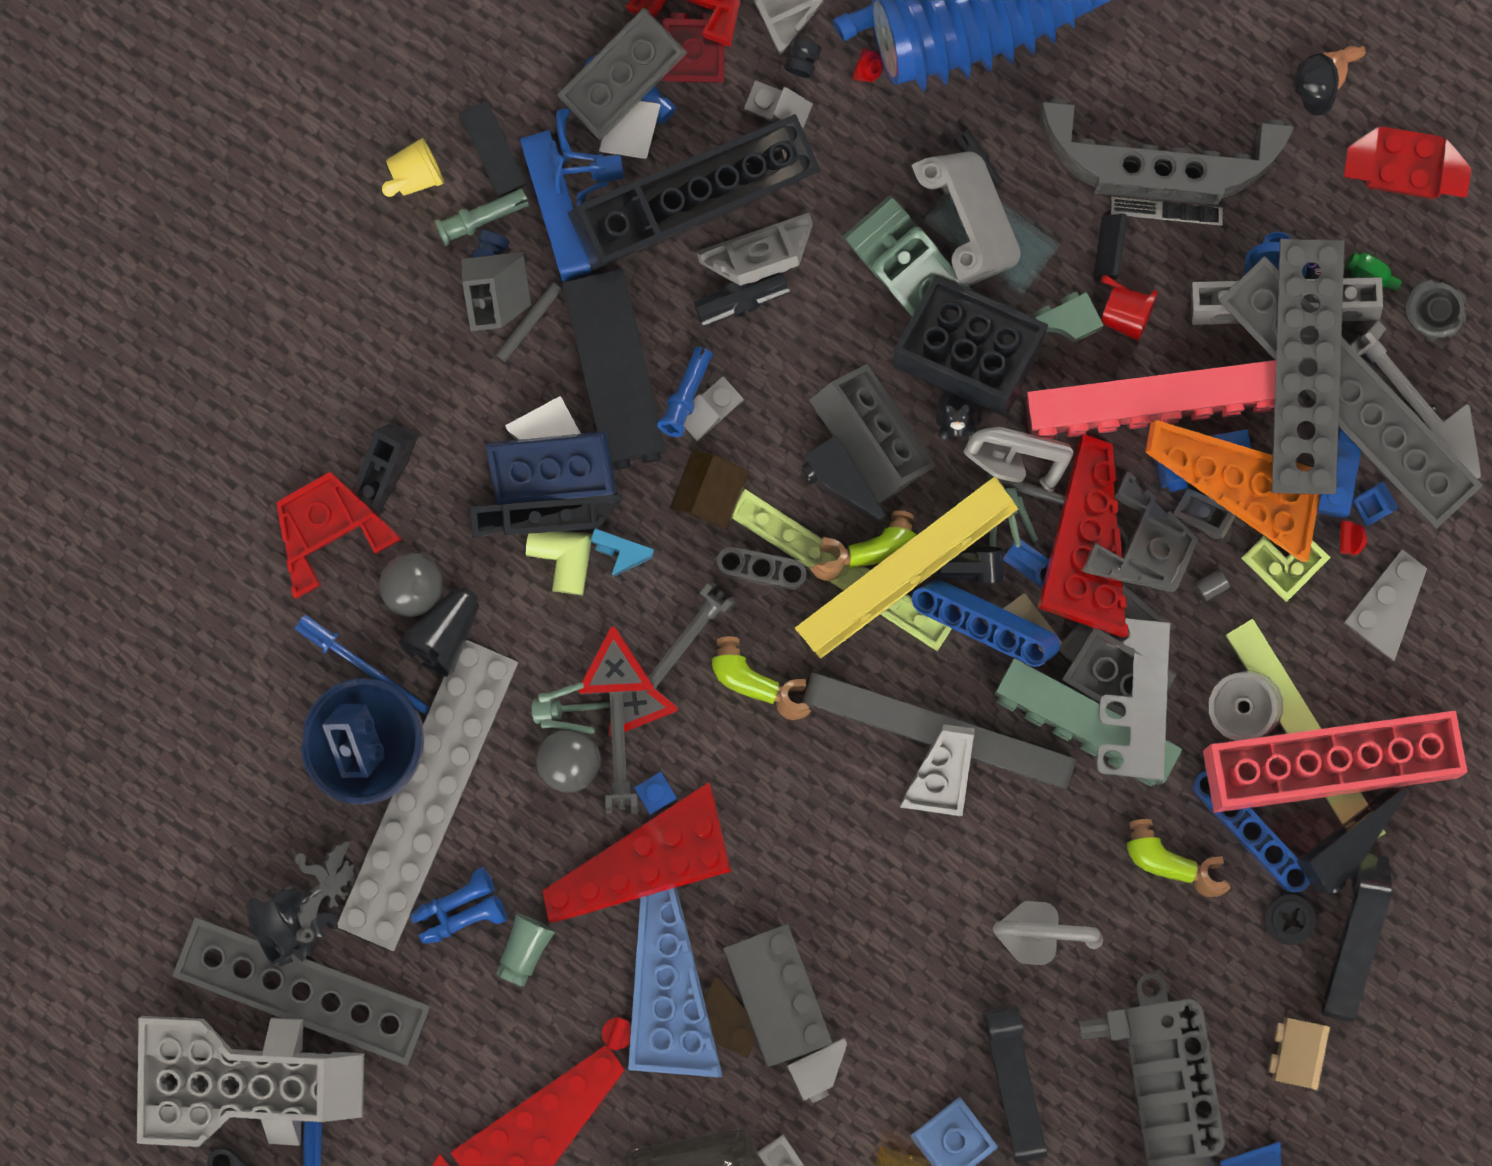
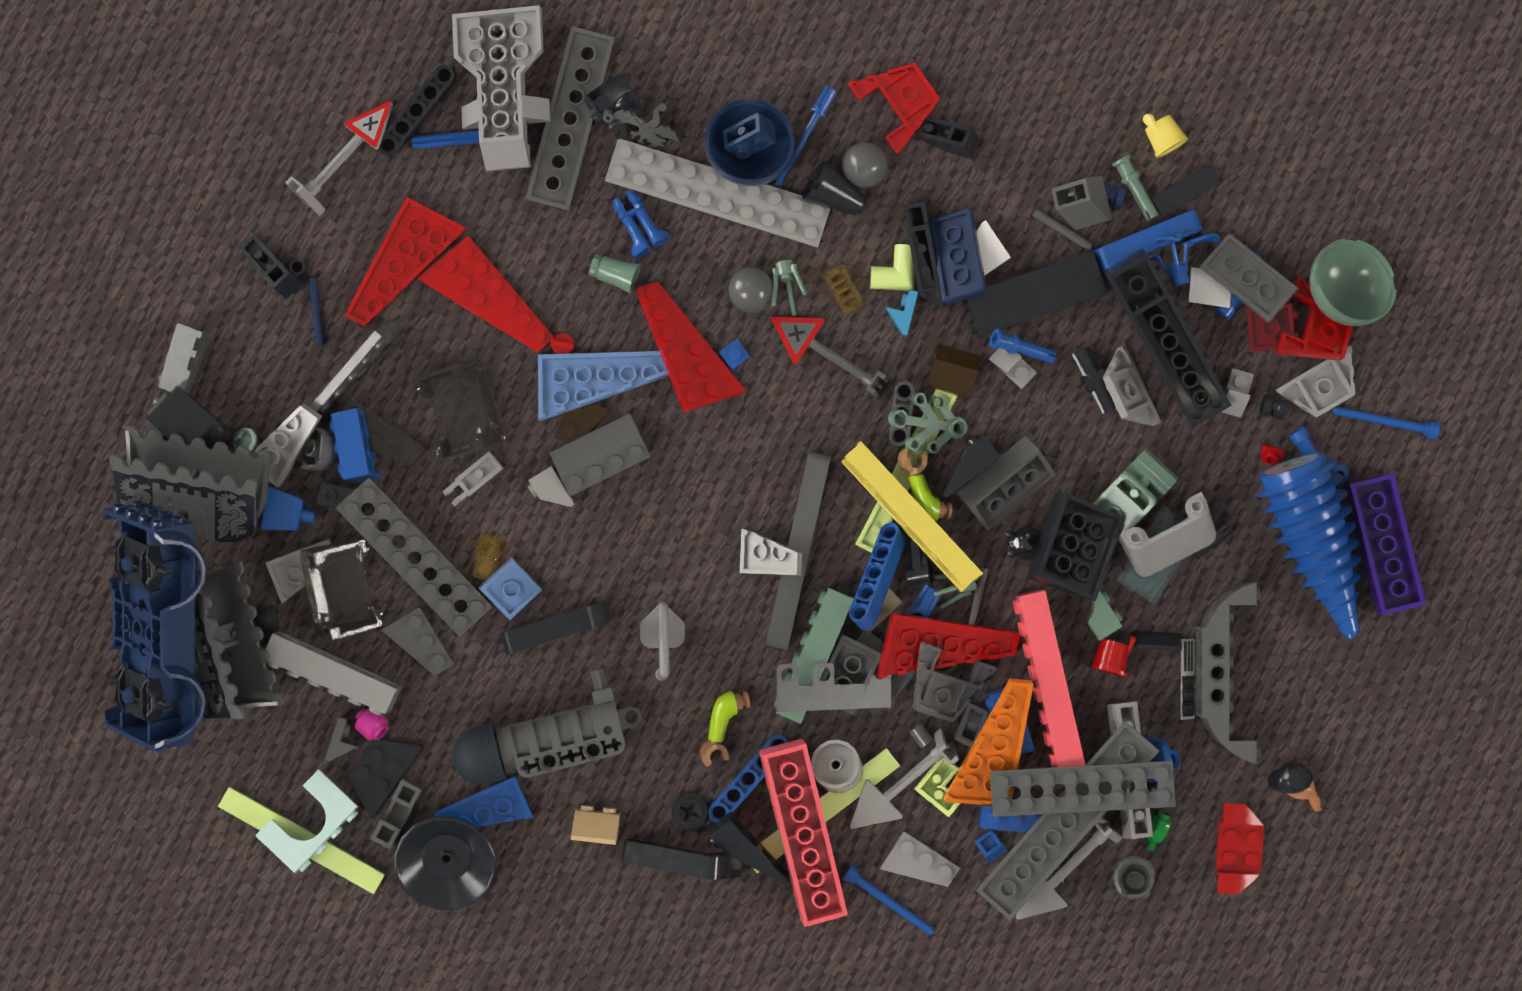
camera: 75 degrees right, 5 degrees up
(555, 644) = (845, 277): none -> clear yellow slope
(614, 673) = (816, 316): dark grey piece -> none
(736, 675) = (823, 403): piece -> none
(779, 528) = (930, 424): none -> sand green plant
(1000, 451) = (1002, 576): light grey piece -> none
(1306, 657) = (876, 807): none -> light grey piece
(1352, 538) = (964, 831): red plate -> none
(1401, 699) = (854, 877): none -> blue piece

